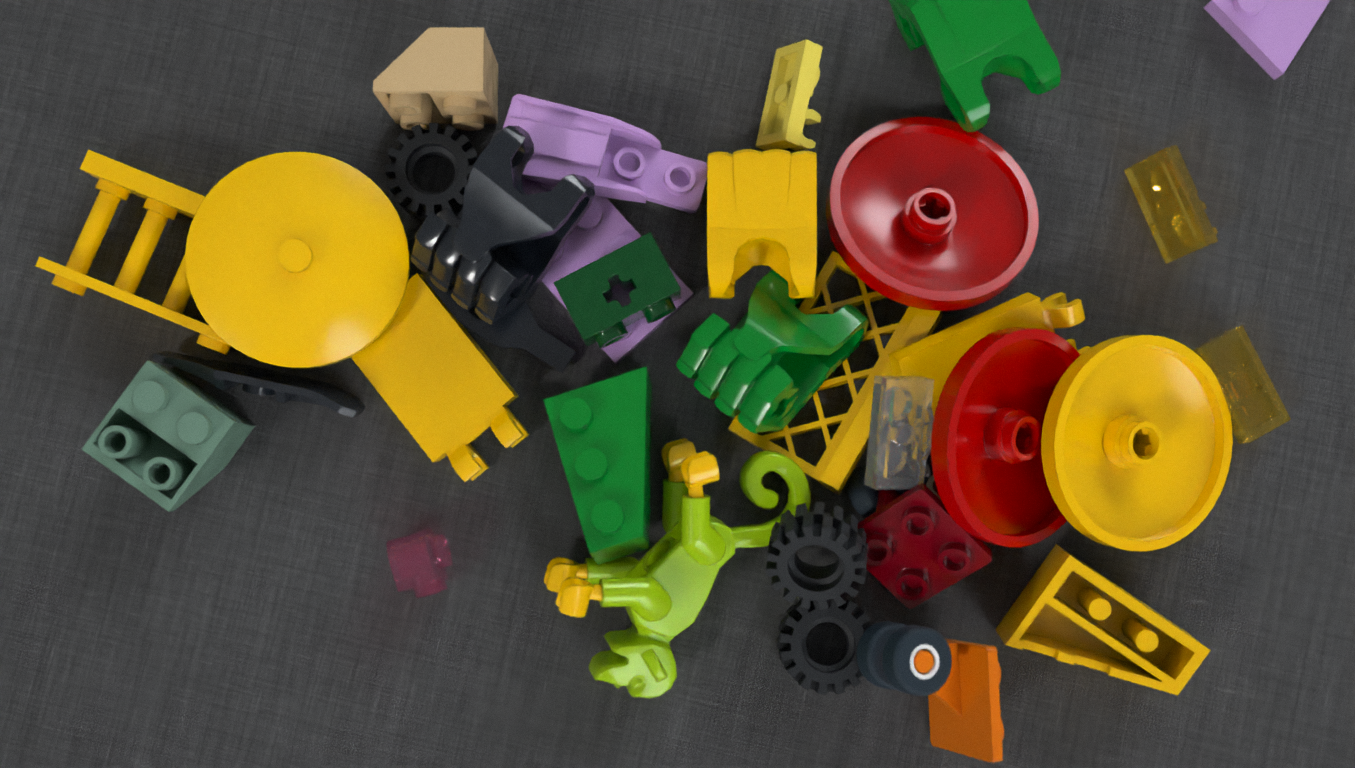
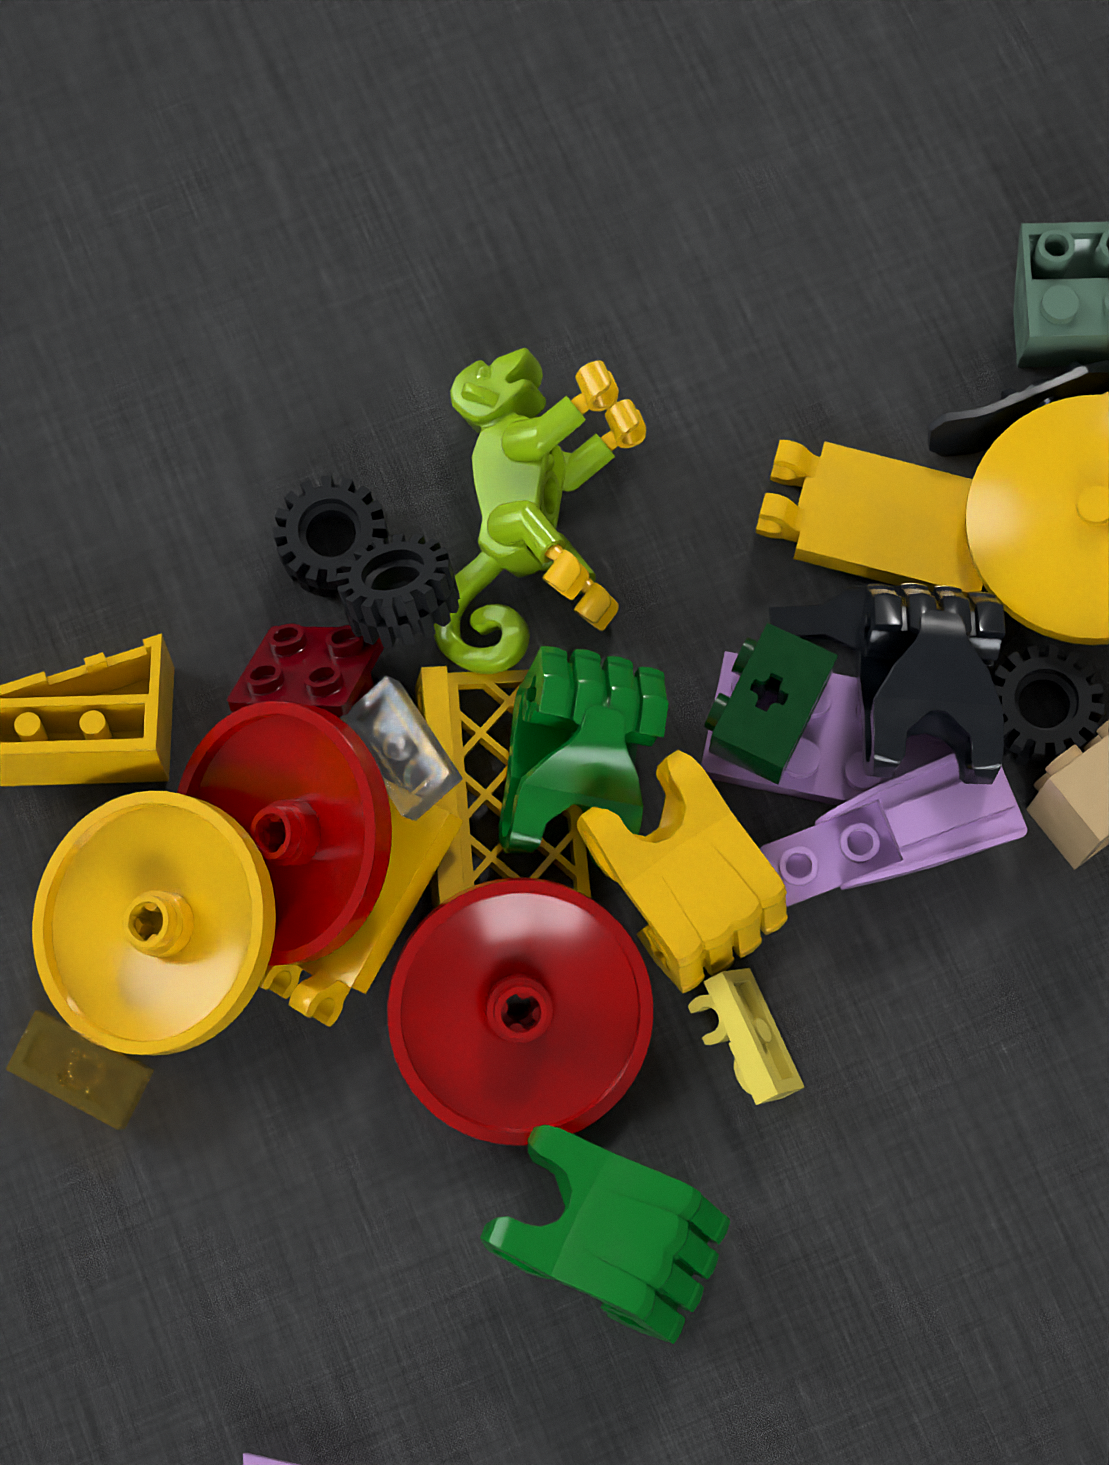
camera: 150 degrees right, 10 degrees down
(420, 562) = (765, 346): clear pink plate -> none
(606, 460) = (661, 544): green wedge -> none
(955, 675) = (194, 579): plate -> none
(1171, 204) = (272, 1206): clear yellow plate -> none

